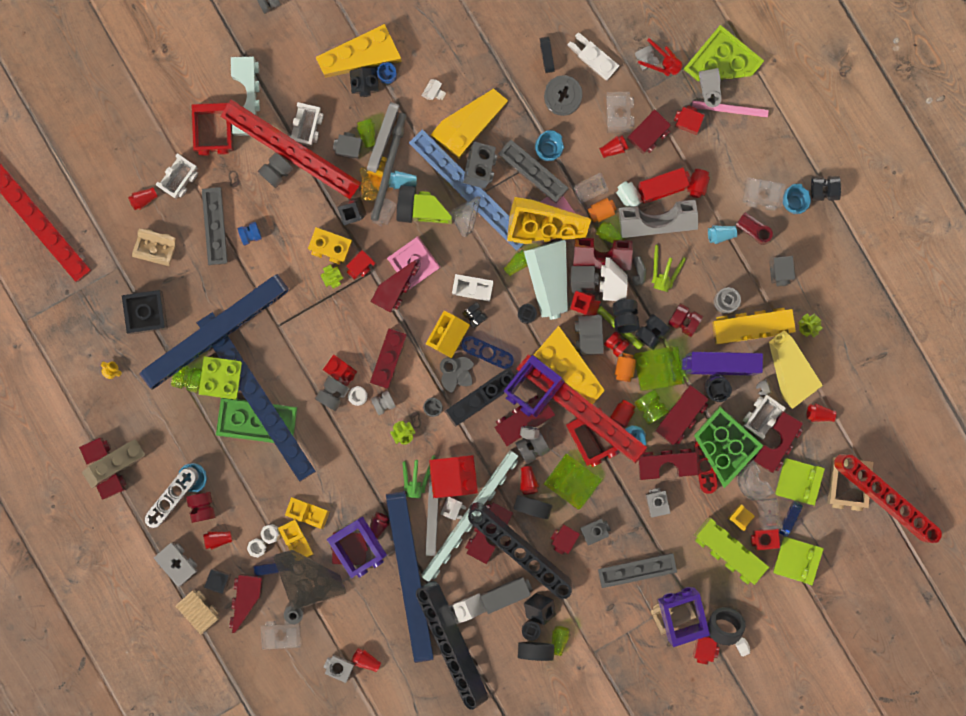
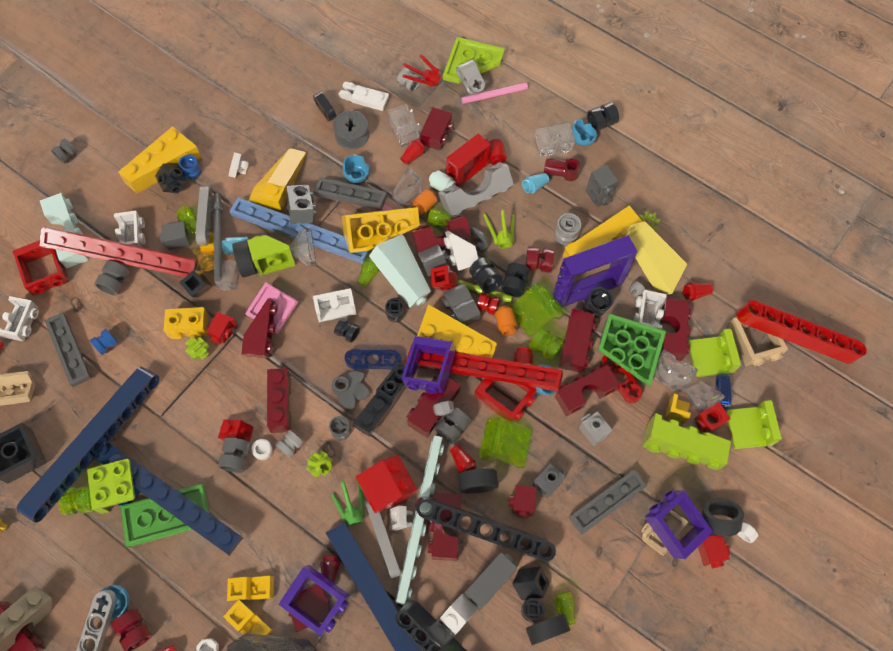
camera: 30 degrees left, 20 degrees down
(270, 533) = (217, 627): white tile -> none
(448, 335) = (327, 355): yellow brick -> none
(689, 119) = (465, 110): red brick -> none

